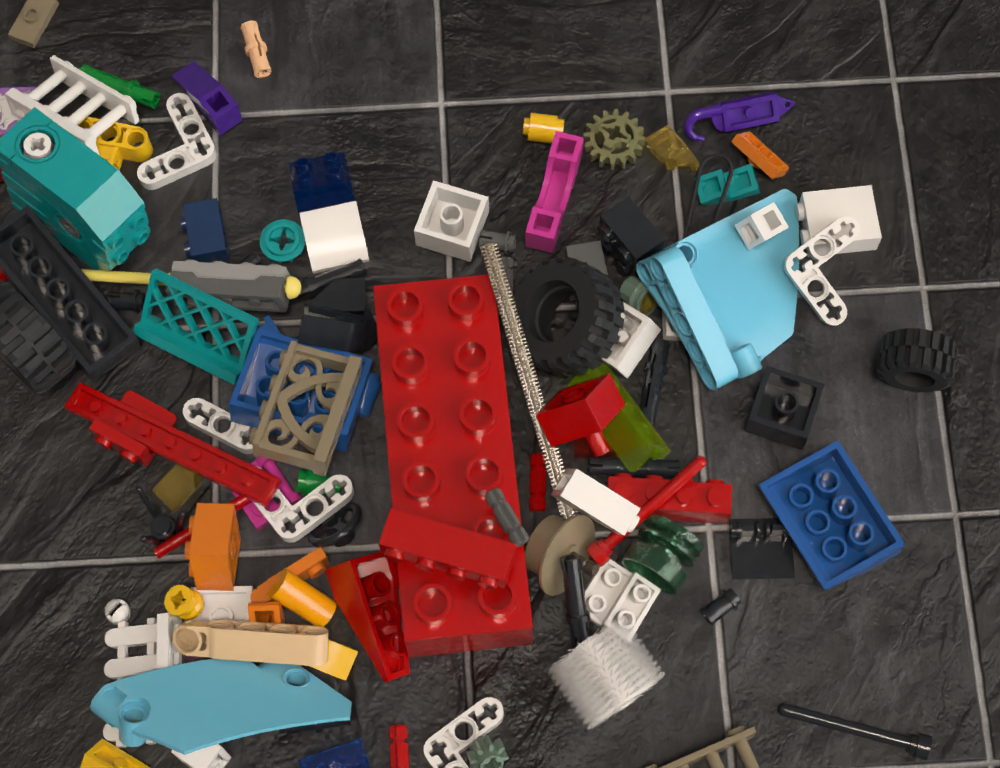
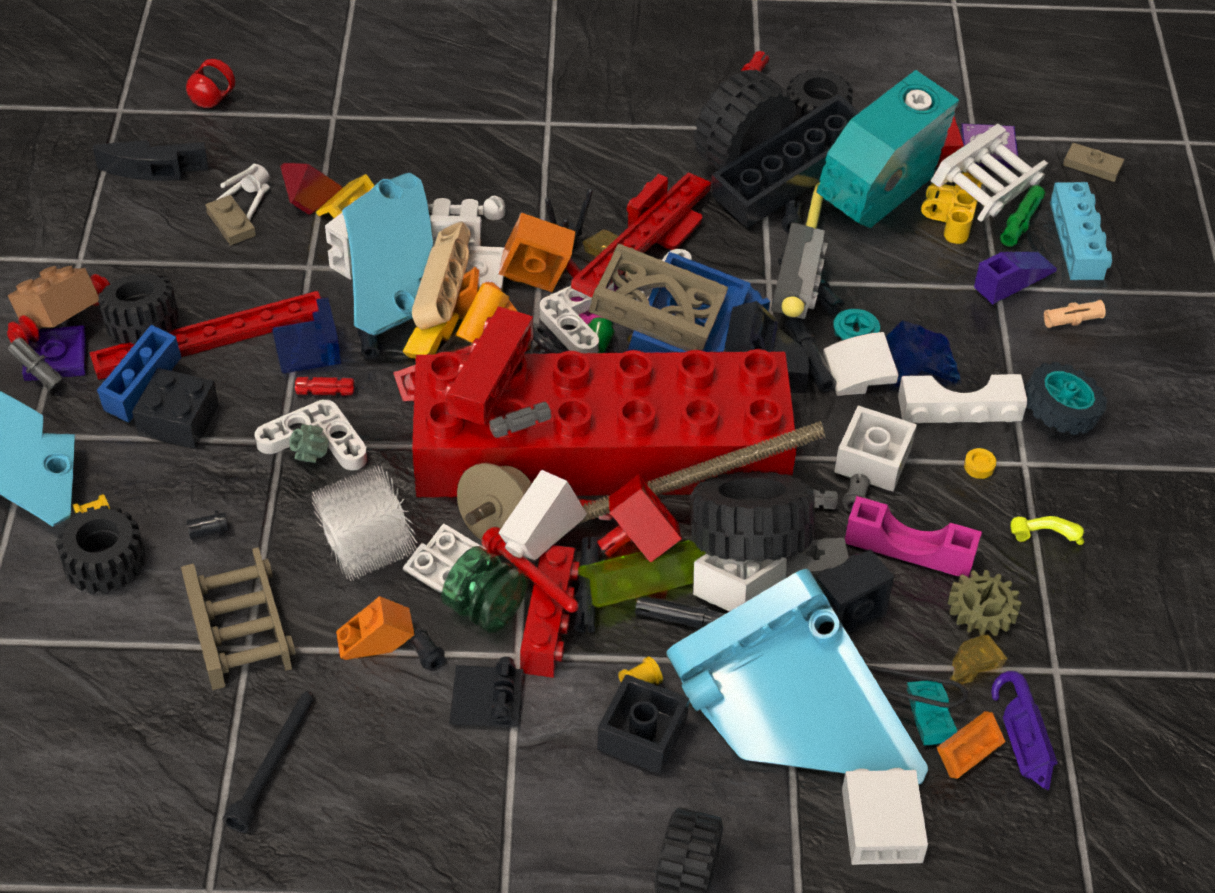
camera: 90 degrees right, 20 degrees down
(142, 36) = (1080, 231): none -> medium azure brick
(187, 609) = (489, 236): yellow wheel -> none
(188, 151) = (953, 270): white beam -> none
(191, 345) = (759, 242): teal fence -> none
(205, 231) = (871, 262): dark blue piece -> none
(378, 73) = (1065, 398): none -> black wheel
(379, 178) = (928, 402): none -> white arch
(447, 139) = (980, 463): none -> yellow tile
(526, 69) = (1022, 527): none -> neon yellow piece
(542, 127) = (995, 541): yellow brick -> none
(575, 597) = (470, 500): black pin -> none
(710, 655) = (375, 630): none -> orange slope
(728, 416) = (647, 671): none -> yellow bush
(761, 226) = (870, 708): white brick -> none
(812, 272) = (812, 768): white beam -> none
(832, 516) = (508, 753): blue slope -> none

